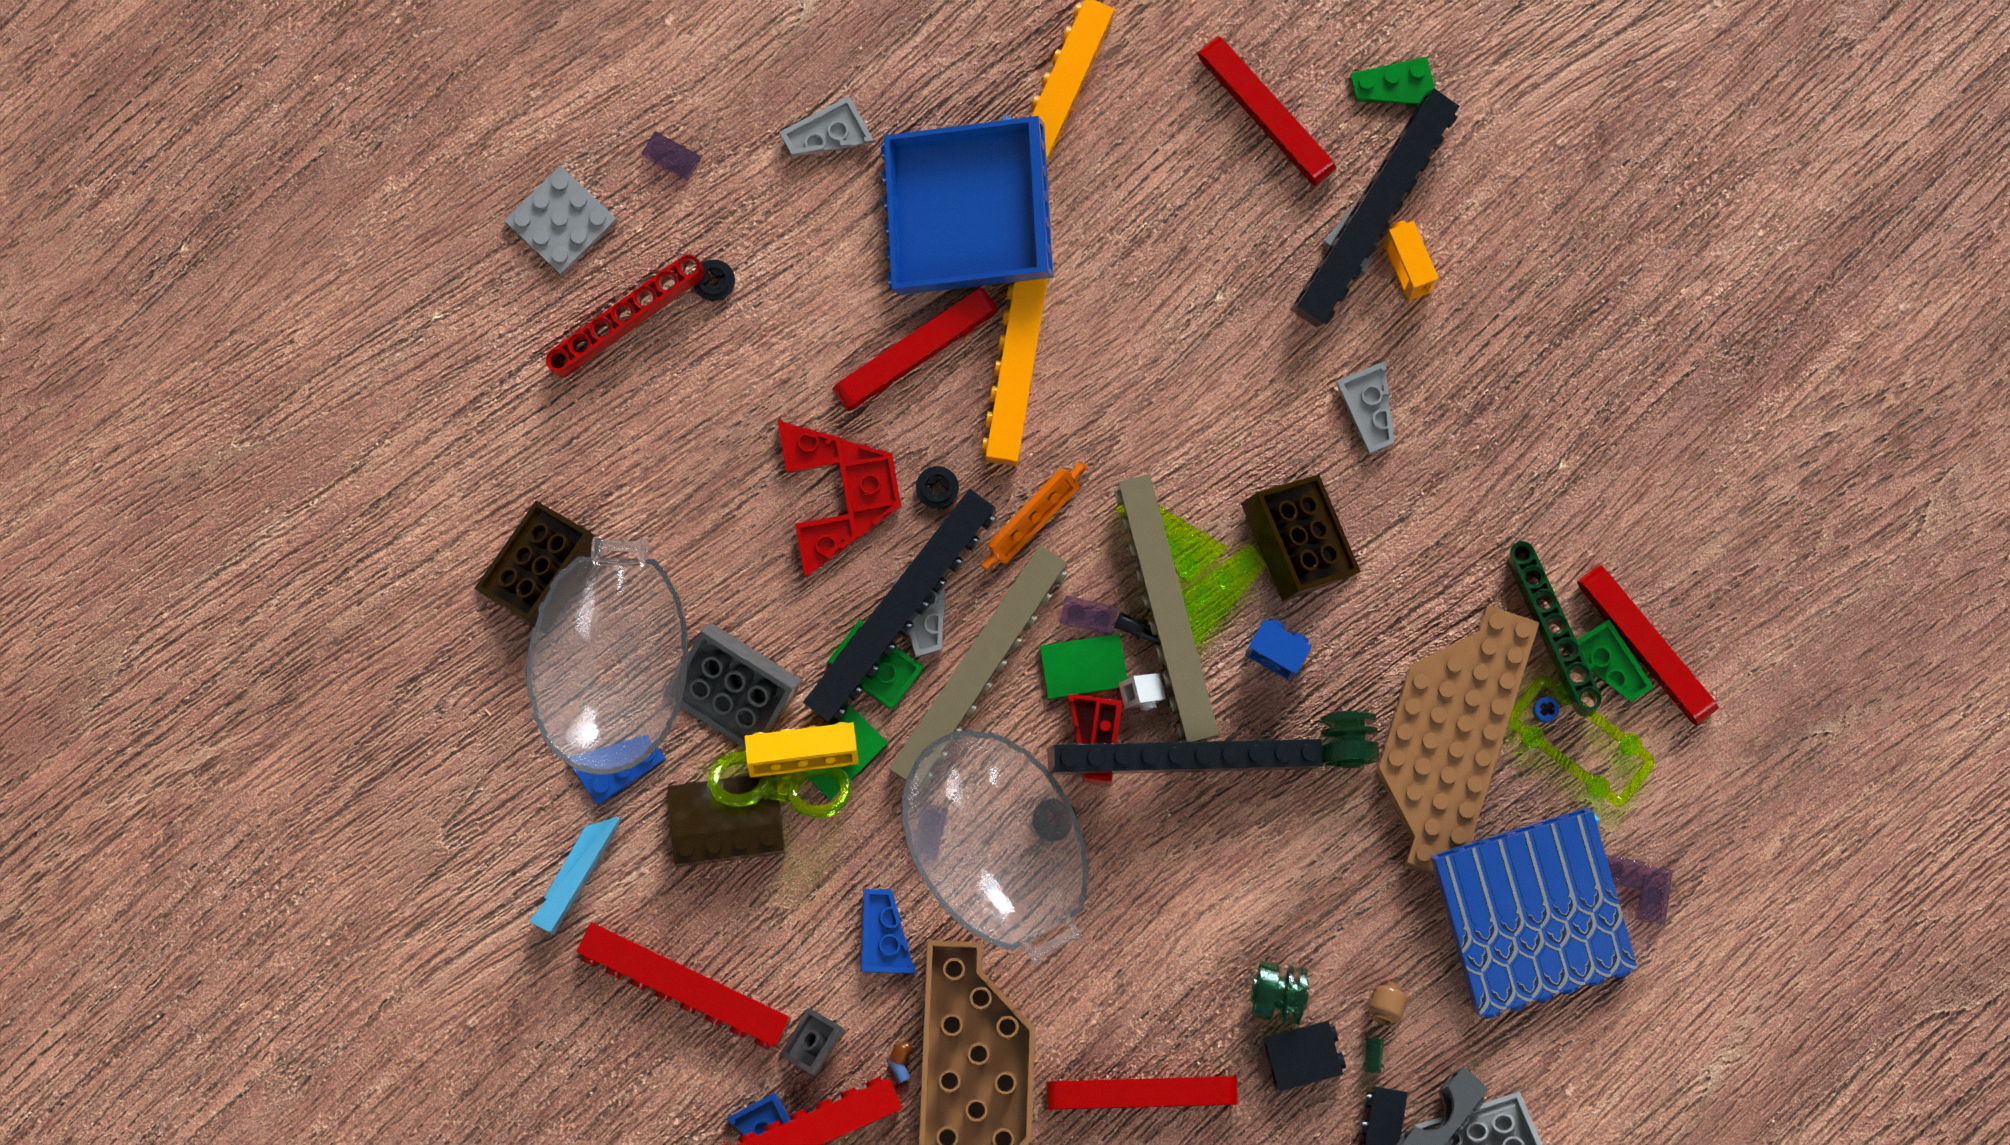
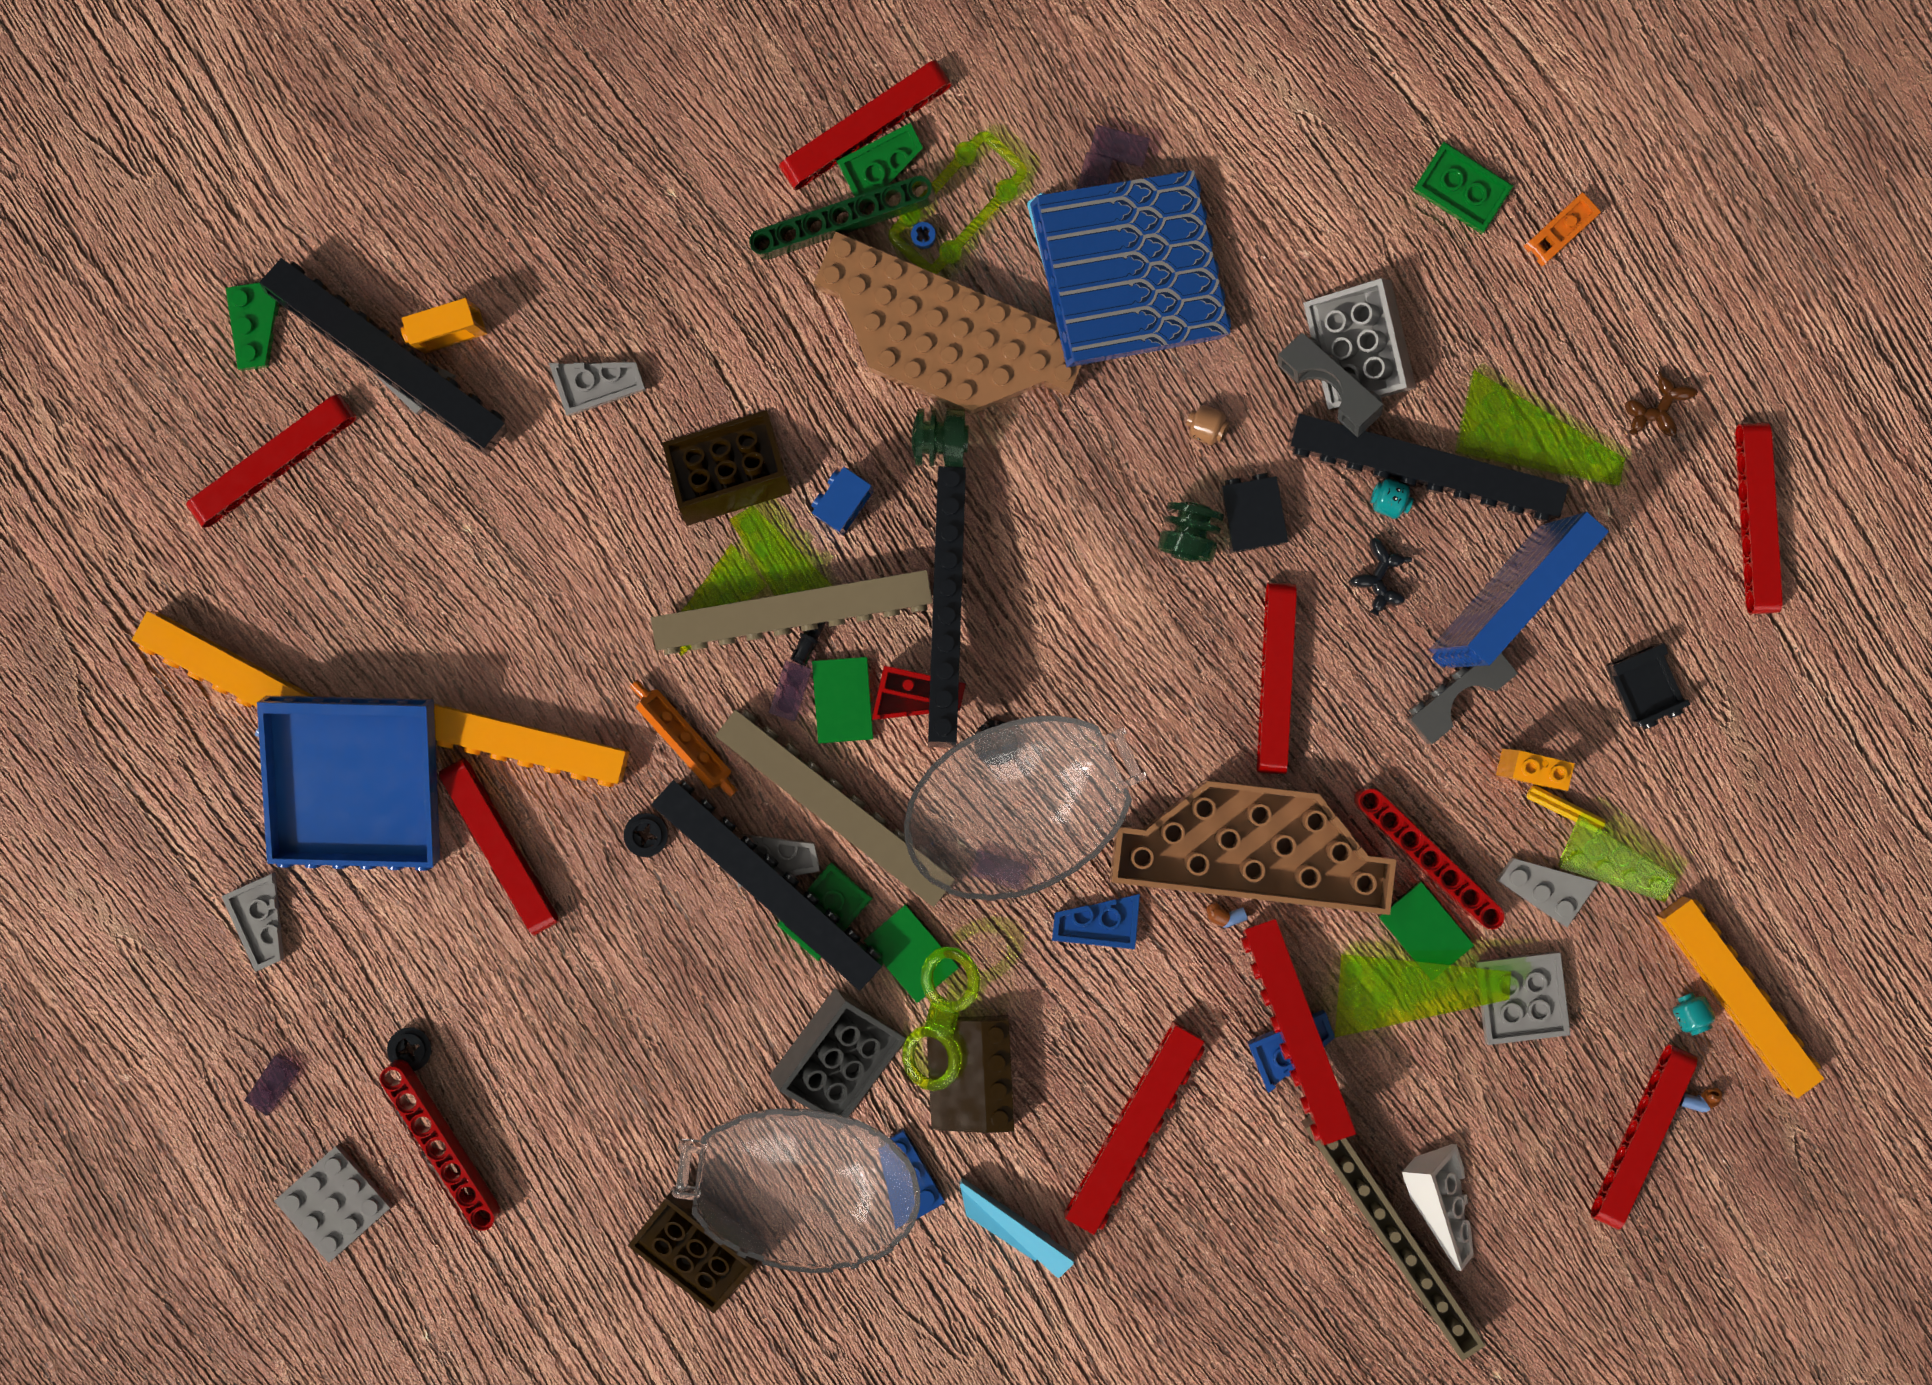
camera: 85 degrees left, 10 degrees up
(801, 749) = (907, 995): yellow brick -> none
(812, 1042) = (1200, 1002): flat silver slope -> none
(867, 483) = (638, 906): red wing -> none
(1142, 691) = (874, 643): white brick -> none
(1374, 1053) = (1257, 443): clear green pin -> none

